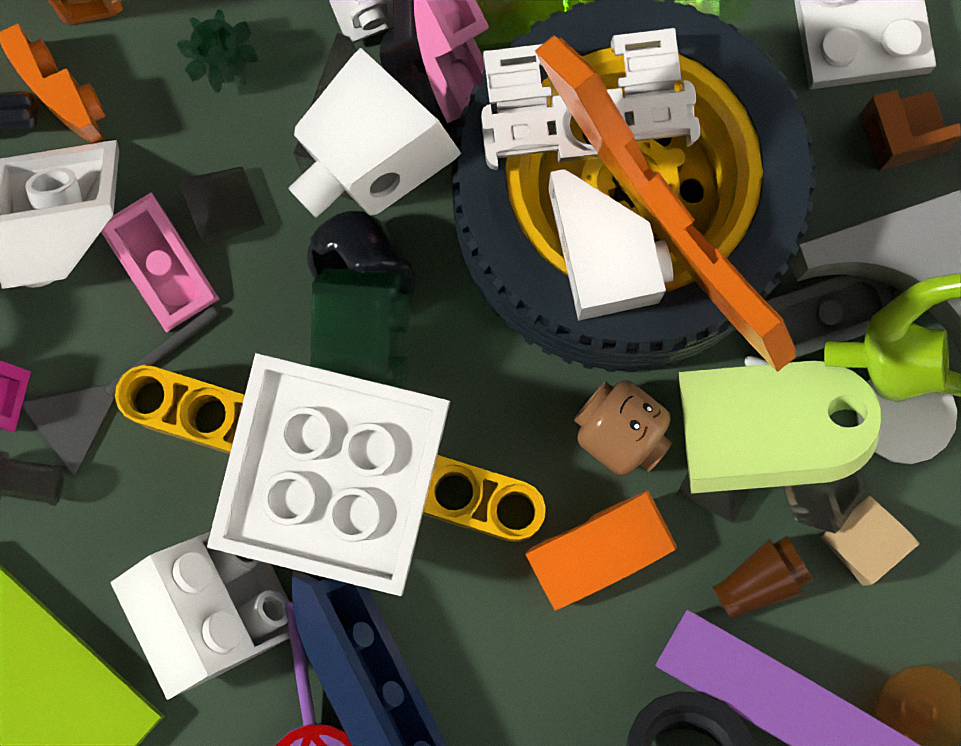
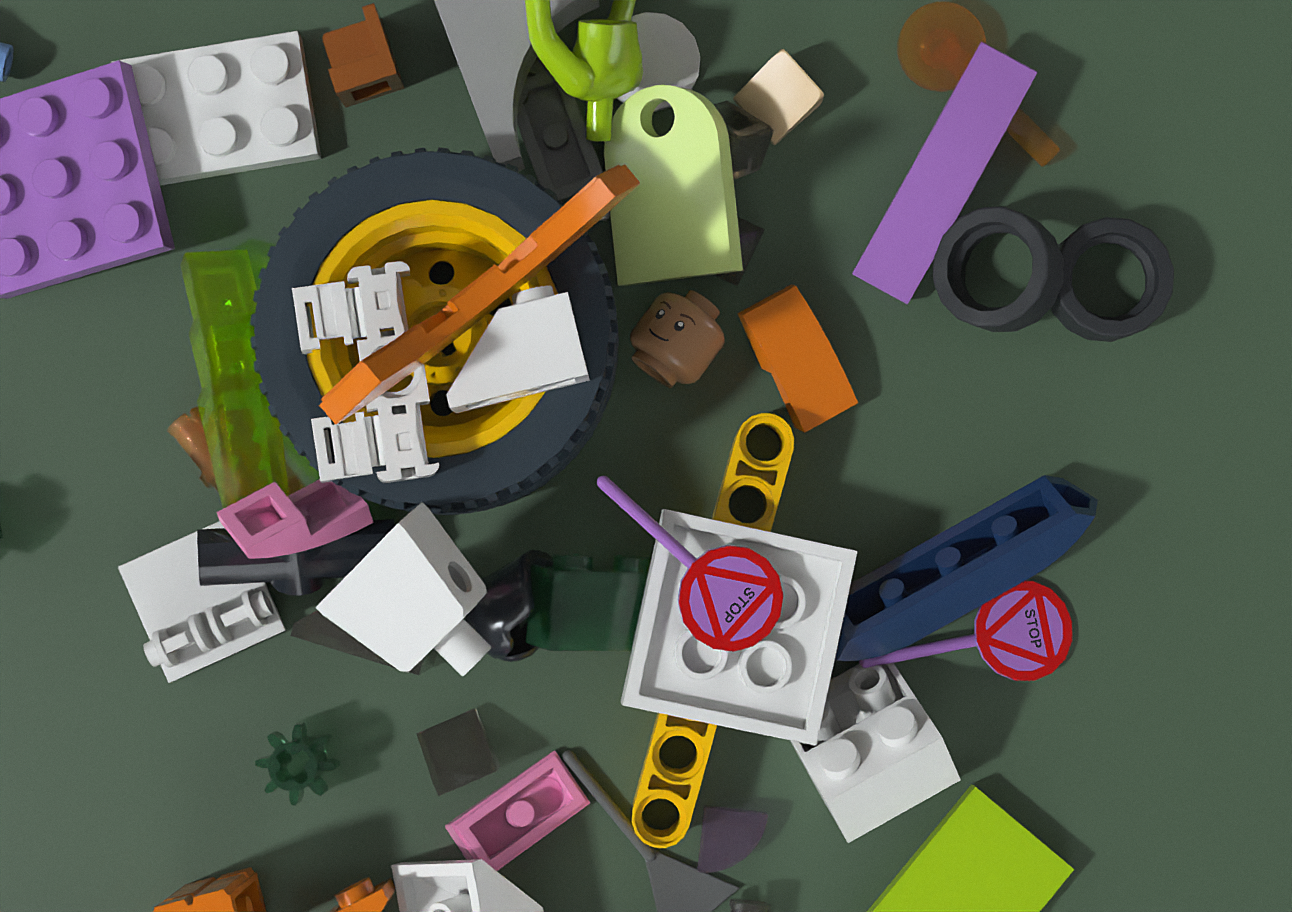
camera: 95 degrees left, 5 degrees up
(125, 465) = (728, 836): none -> clear purple tile
(360, 459) = (726, 594): none -> piece
(763, 579) = (820, 199): reddish brown cone -> none

